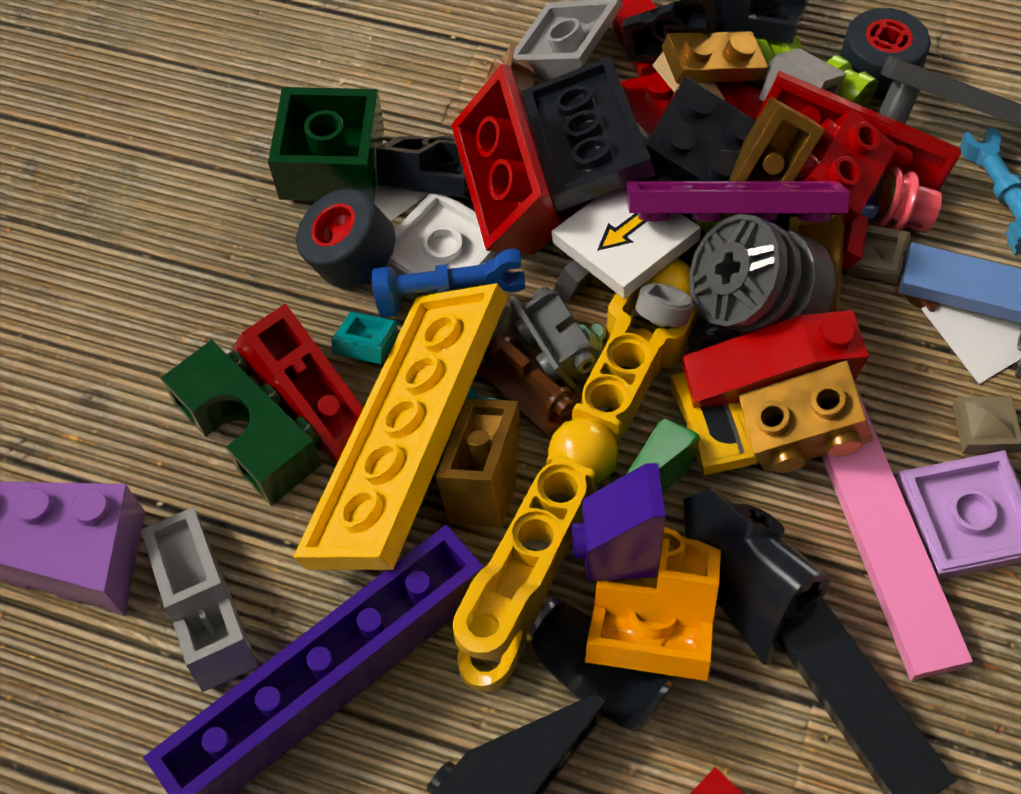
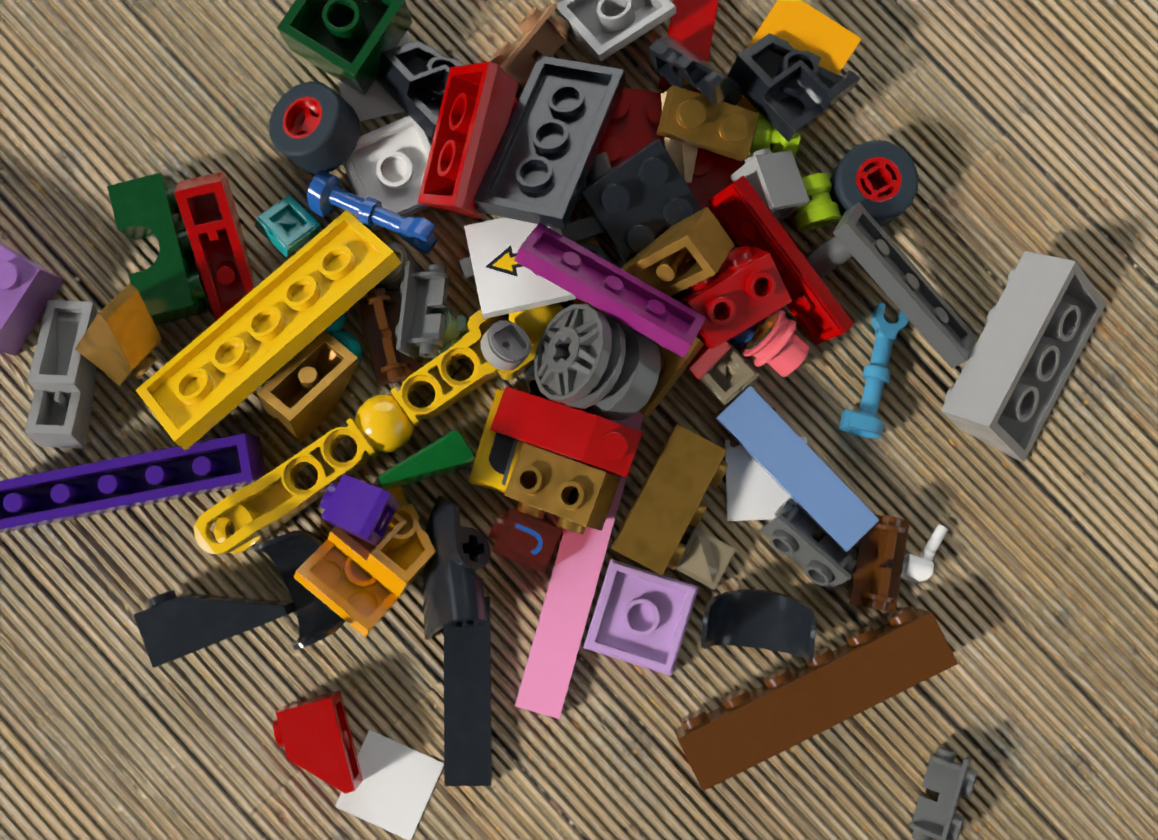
camera: 25 degrees right, 25 degrees up
(251, 508) = (121, 337): none -> pearl gold slope
(804, 492) = (524, 539): none -> clear red brick
(915, 384) = (670, 500): none -> pearl gold brick

